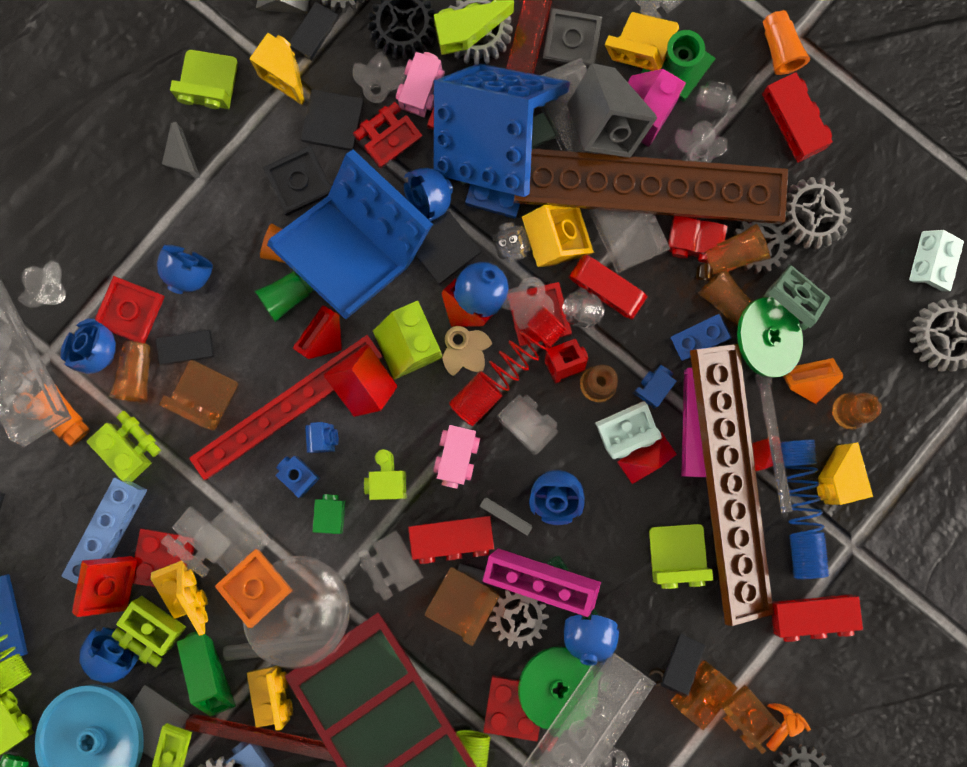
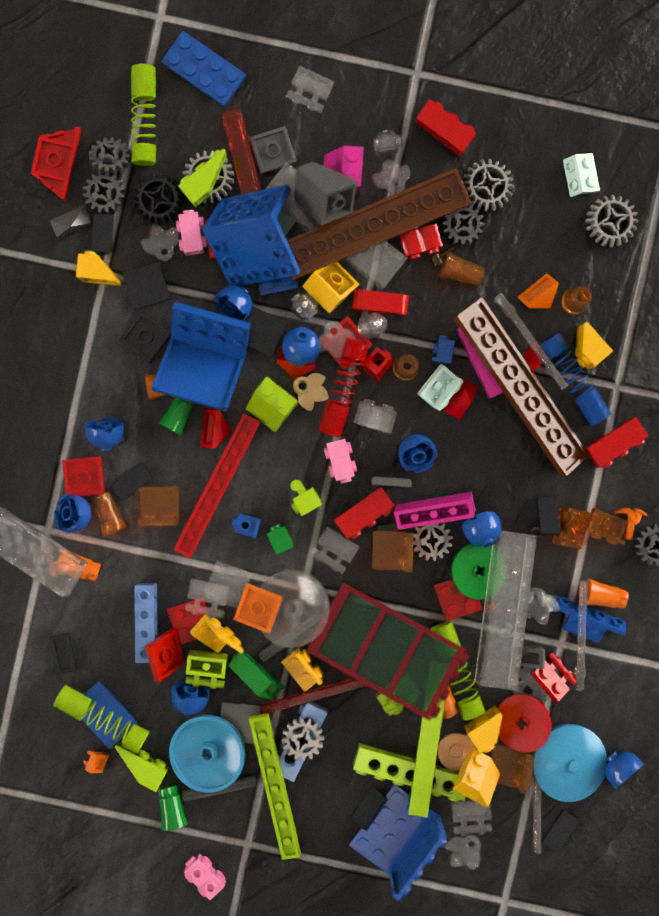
camera: 25 degrees left, 5 degrees up
(40, 283) = (17, 490): clear plate -> none
(119, 451) = (128, 568): lime brick -> none
(178, 154) = (59, 360): dark grey slope -> none
(206, 80) = (51, 302): lime bracket -> none
(321, 437) = (249, 493): blue plate -> none
(362, 382) = (256, 445): red slope -> none
(392, 141) = (193, 279): red plate -> none
(642, 41) = (320, 129): yellow bracket -> none
(679, 556) = (512, 449): lime bracket -> none
(686, 60) = (343, 136): green plant -> none
(700, 336) = (456, 303): blue plate -> none
(738, 251) = (451, 238): clear orange plant -> none
(762, 355) = (490, 288): piece -> none
(784, 44) = (412, 82): orange plant -> none
(814, 296) = (516, 241): sand green piece -> none

